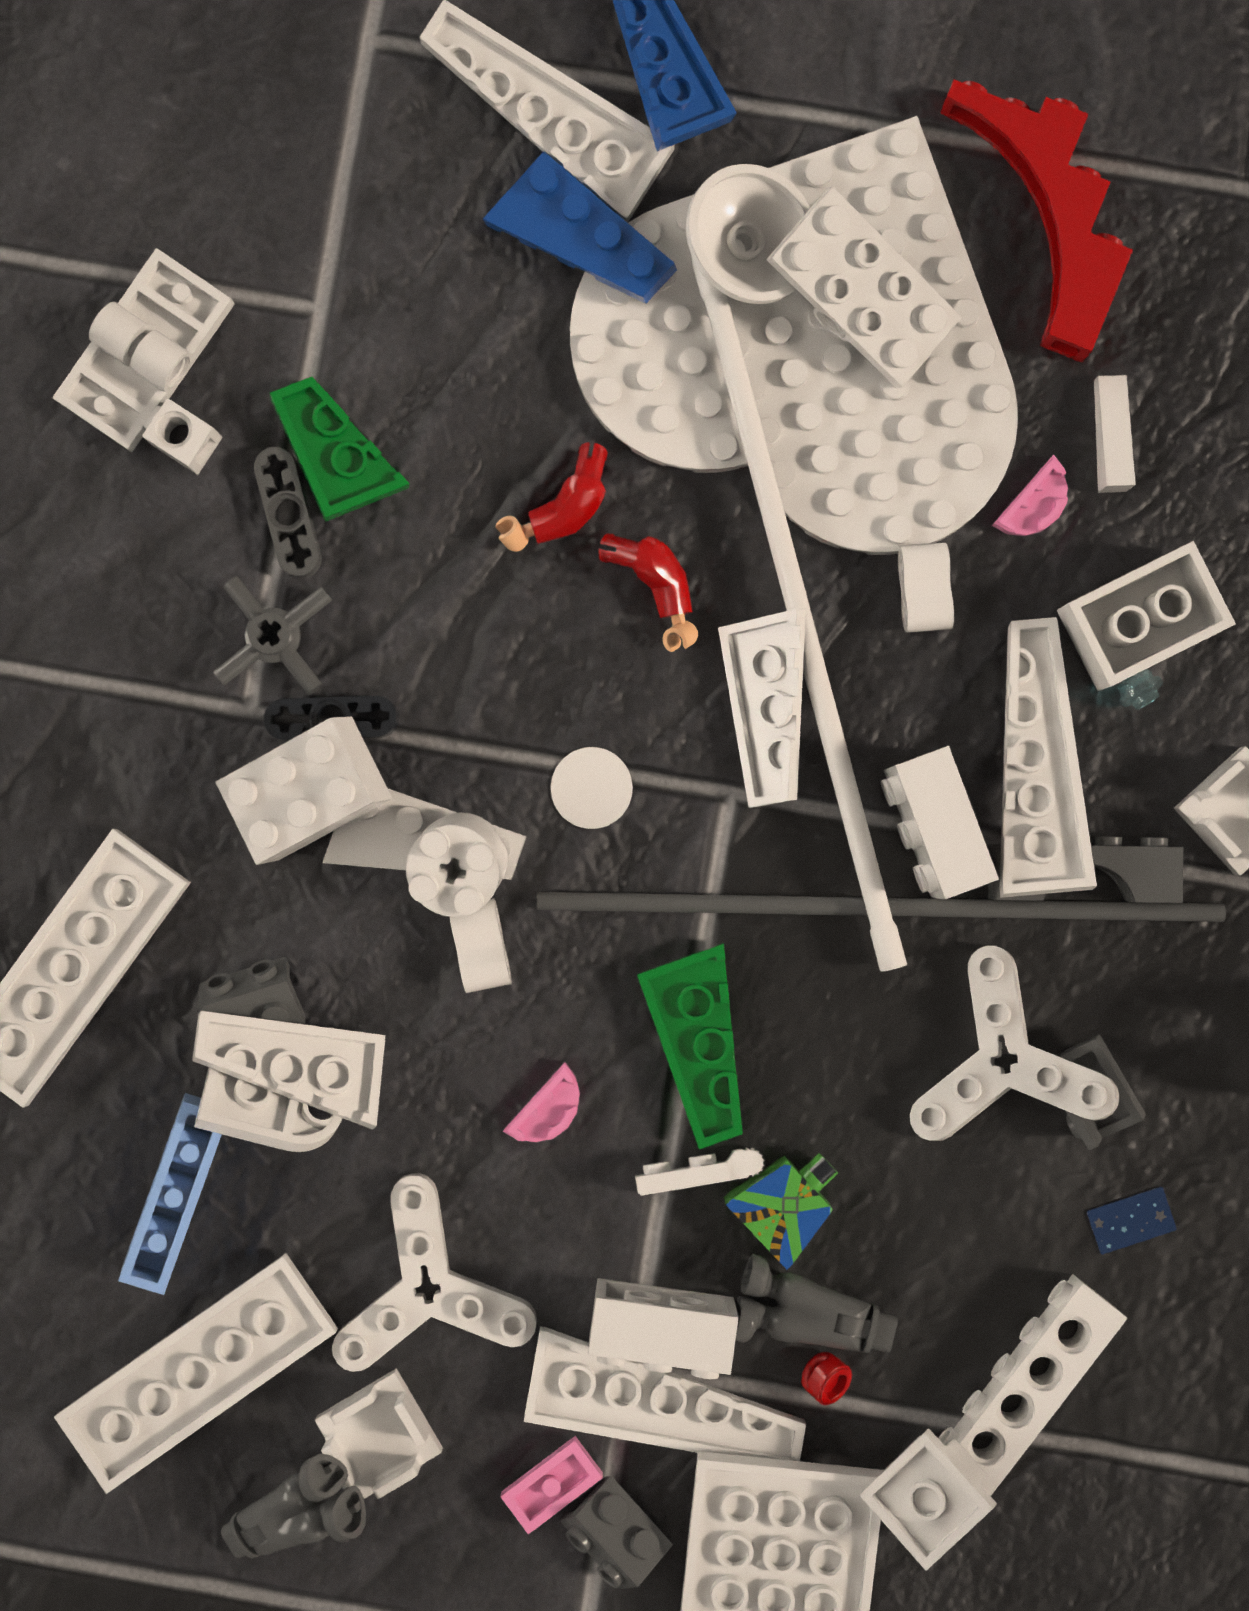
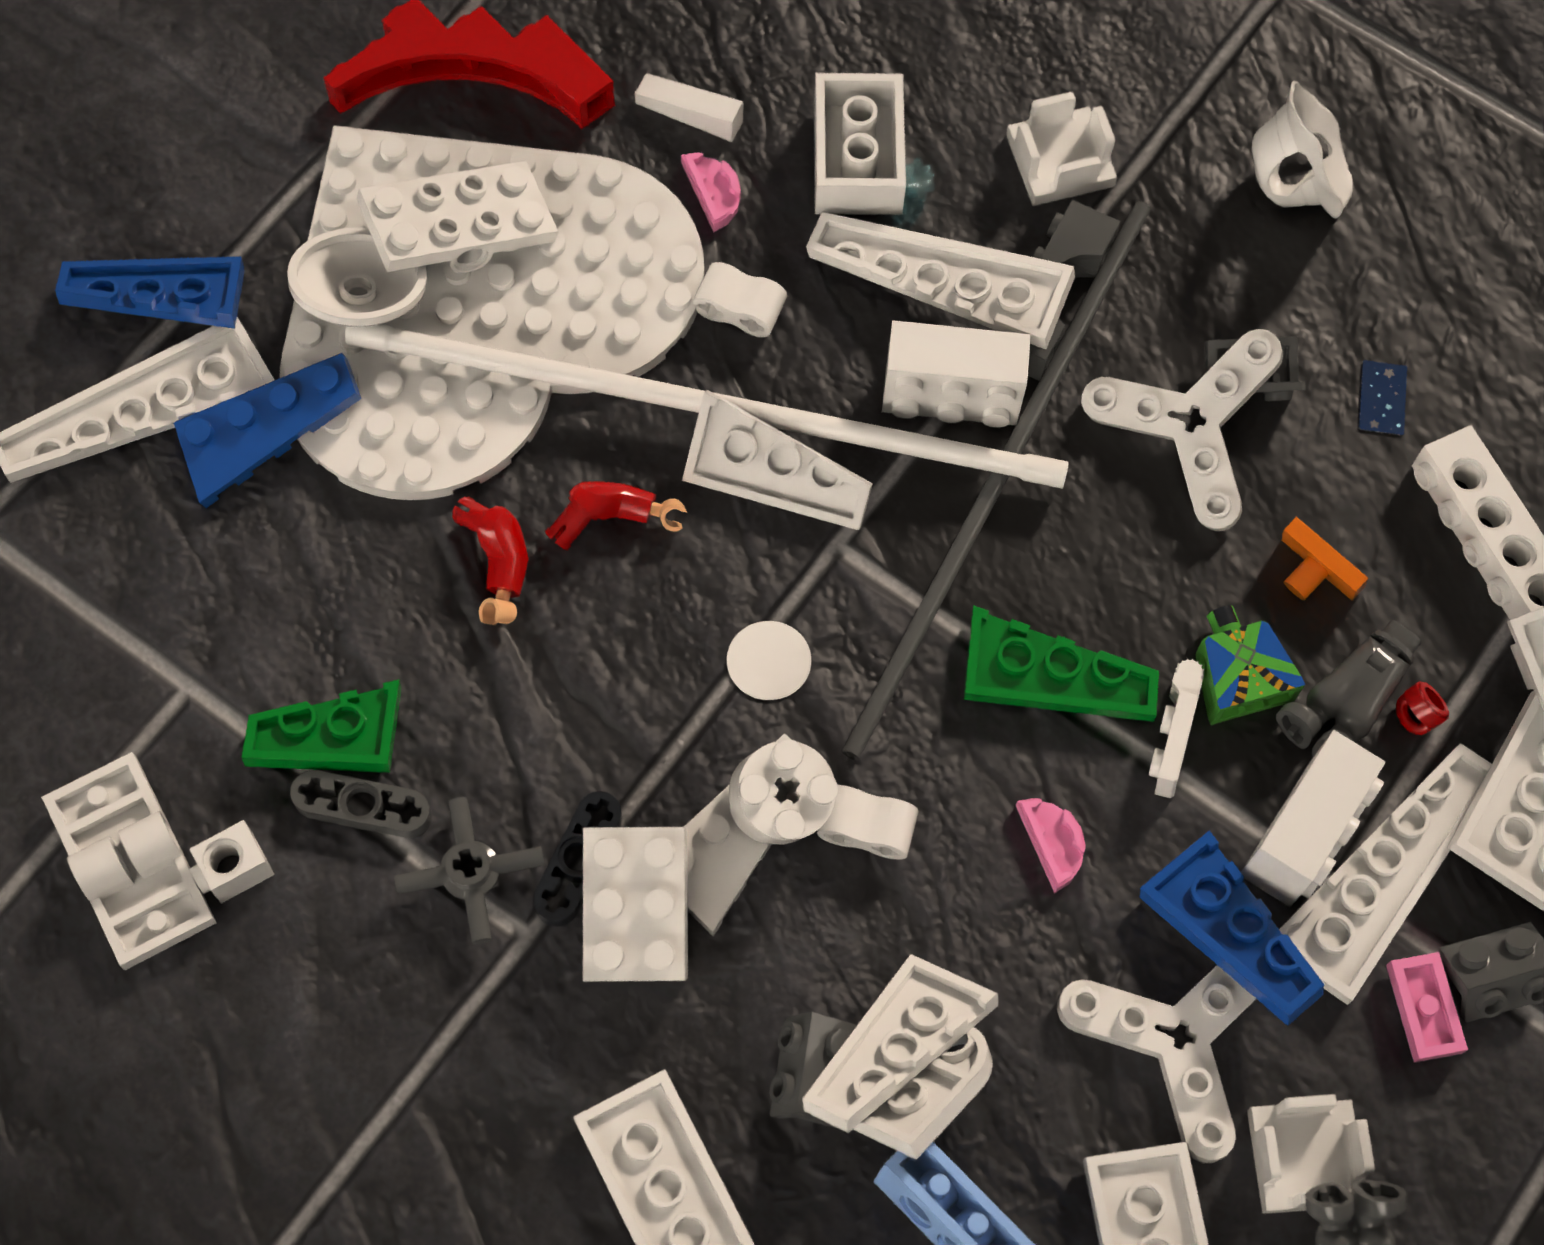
camera: 70 degrees left, 20 degrees down
(541, 1282) = (1224, 920): none -> blue wing
(919, 1231) = (1319, 563): none -> orange tile

